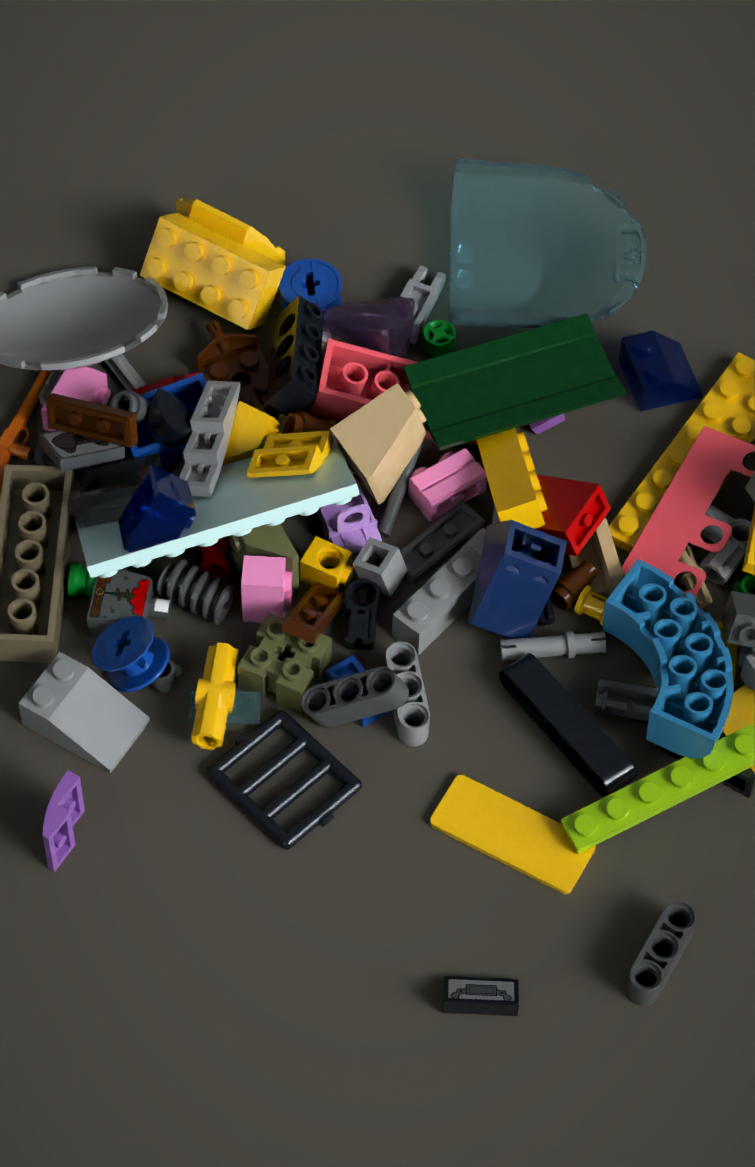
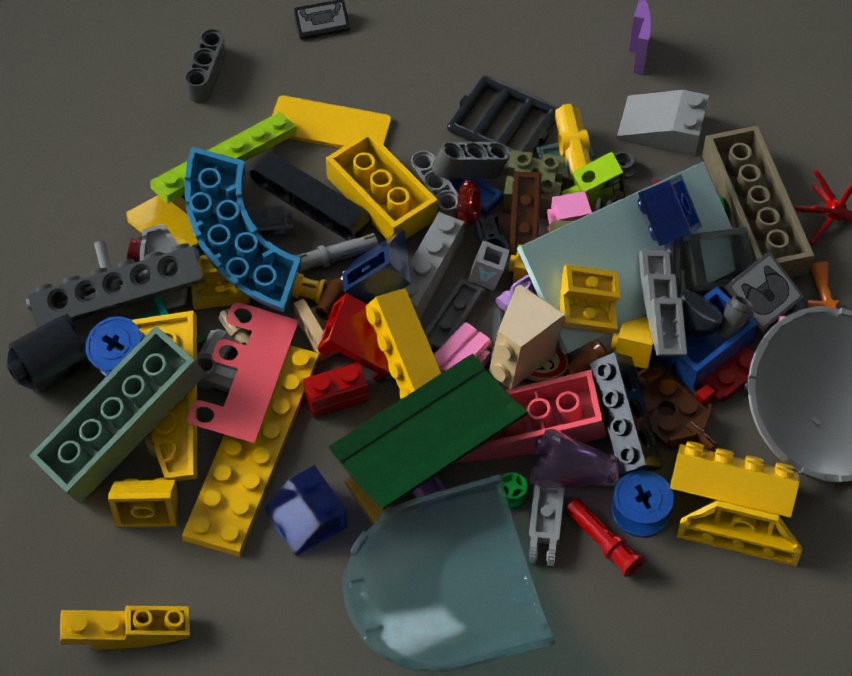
camera: 165 degrees right, 0 degrees up
(92, 420) = (762, 297): reddish brown tile -> none
(130, 653) = (648, 154): blue piece -> none
(204, 626) = (599, 179): none -> lime torso
(355, 265) = (613, 546): none -> red pin
(376, 645) = (469, 202): none -> clear red gear
(477, 699) = (381, 186): none -> yellow brick
(610, 471) = (336, 389): none -> red brick

